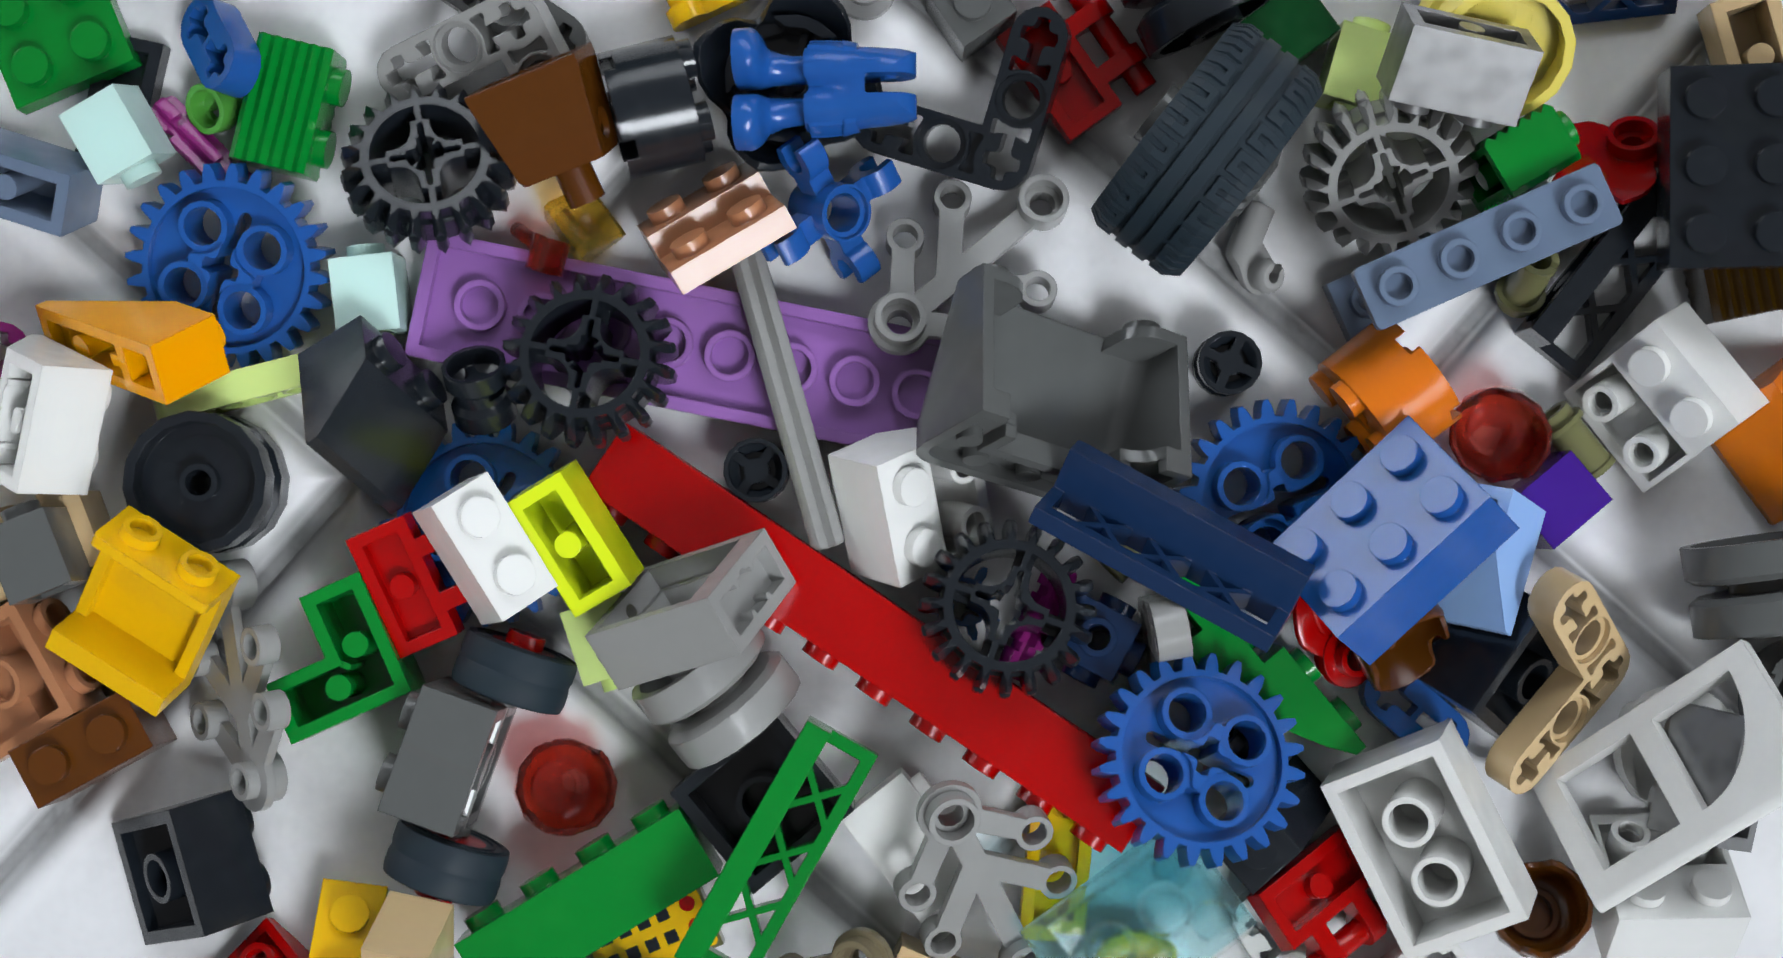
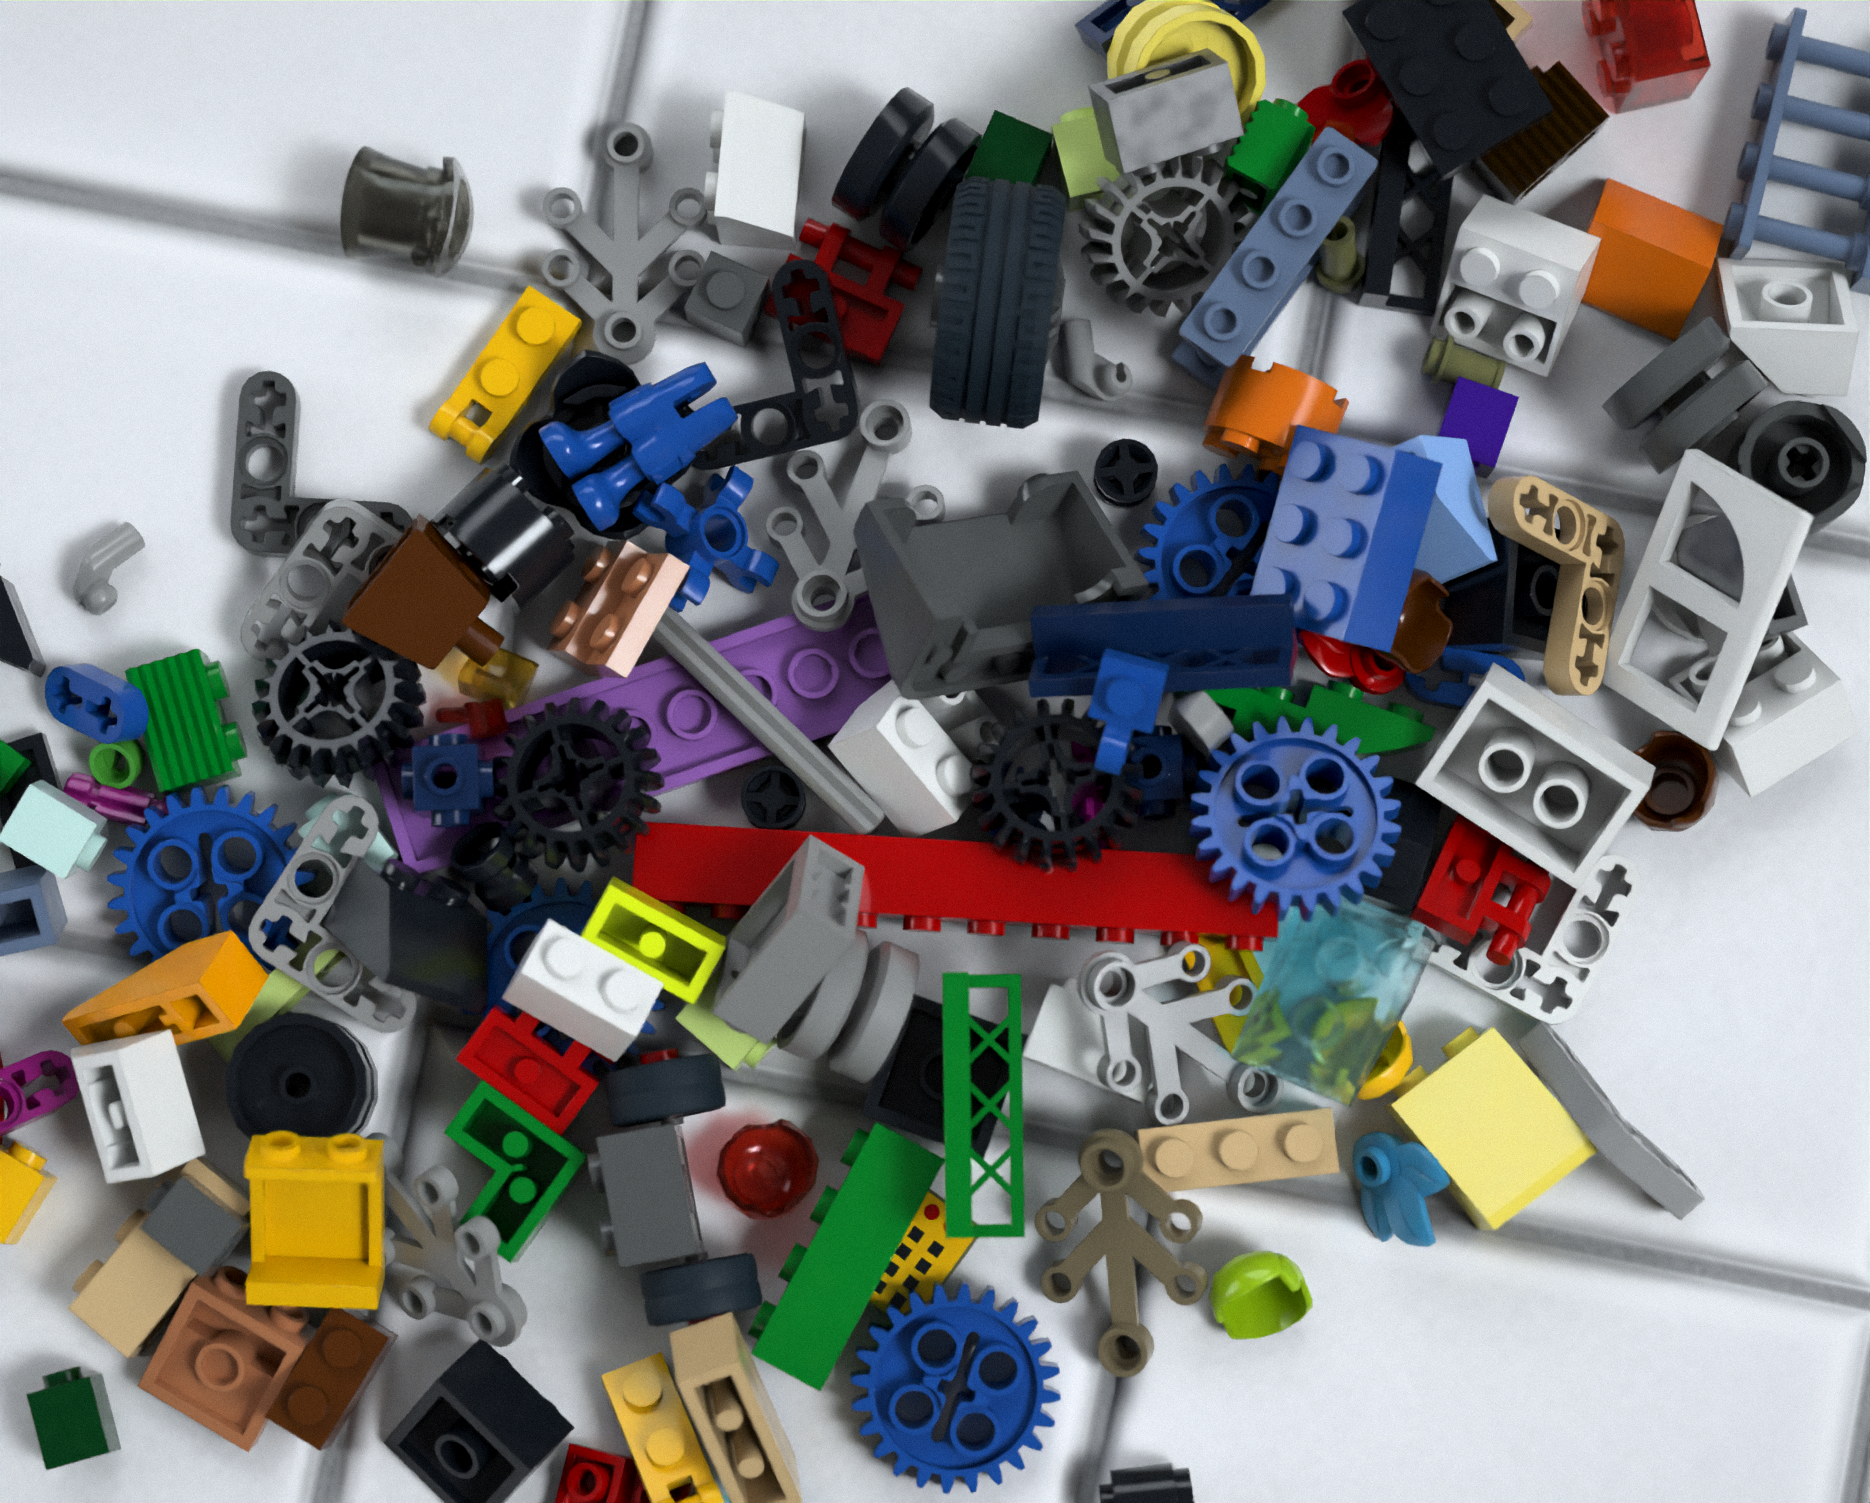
camera: 30 degrees left, 5 degrees down
(293, 336) = (309, 911): none -> light grey beam
(502, 301) = (469, 793): none -> dark blue brick
(1111, 577) = (1128, 699): none -> blue plate
(1500, 434) = (1392, 397): clear red hair -> none

